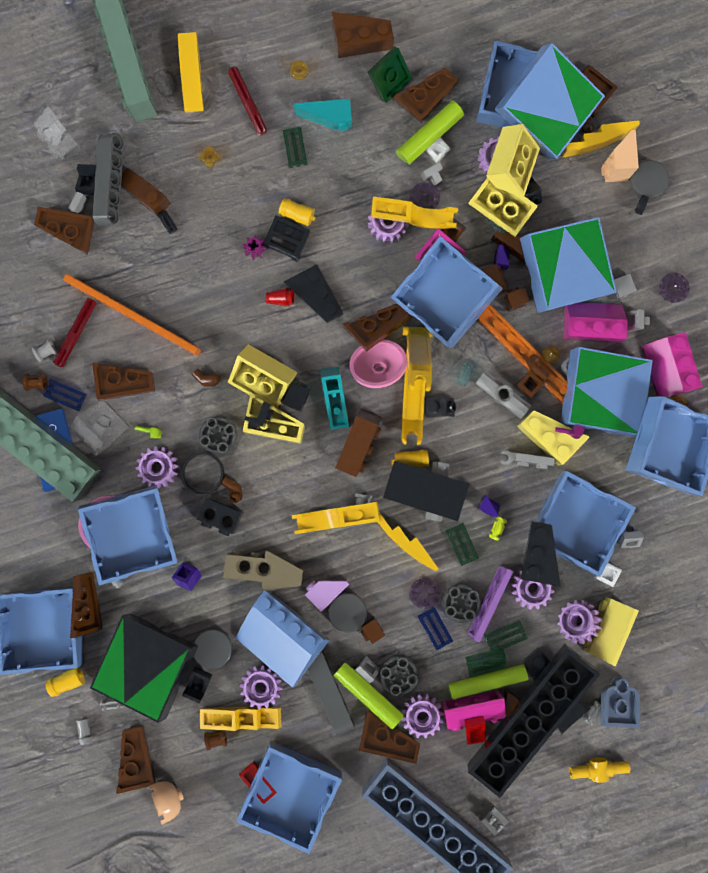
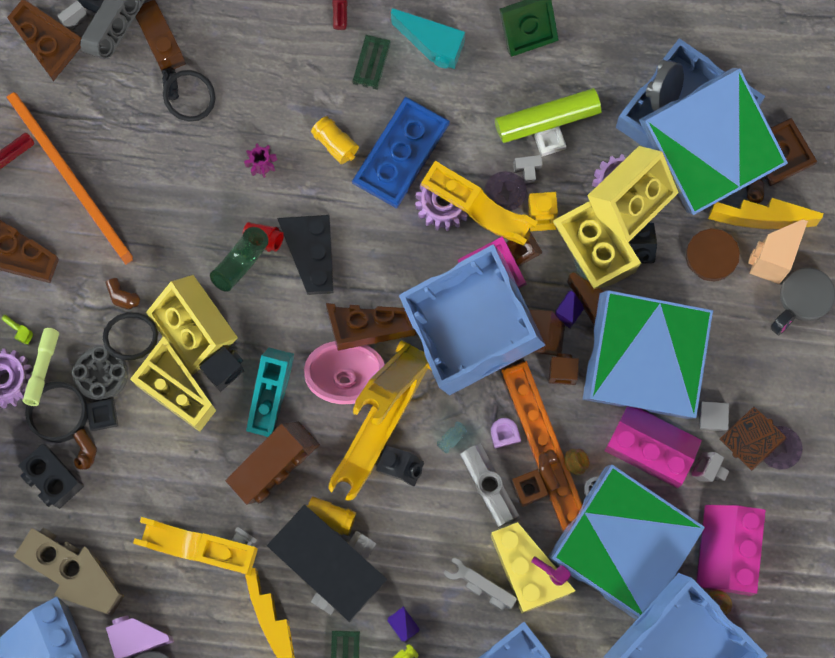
camera: 25 degrees right, 10 degrees down
(175, 437) = (36, 381): none -> yellowish green piece
(189, 209) = (201, 77): none -> black piece
(209, 151) = (260, 21): clear yellow plate -> none
(230, 417) = (130, 315): none -> black piece
(232, 461) = (102, 415): none -> black tile
(266, 413) = (163, 371): black bracket -> none
(273, 319) = (239, 259): none -> clear green cylinder
(289, 233) = (312, 161): black plate -> none
(343, 200) = (401, 152): none -> blue tile
(425, 96) = (566, 69): reddish brown wing -> none
(456, 198) = (543, 209): none -> yellow window
(496, 356) = (504, 433): none -> lavender tile
(500, 82) = (666, 85): none -> dark grey tile
(577, 180) = (712, 254): none -> reddish brown tile
(655, 289) = (753, 438): none -> reddish brown piece

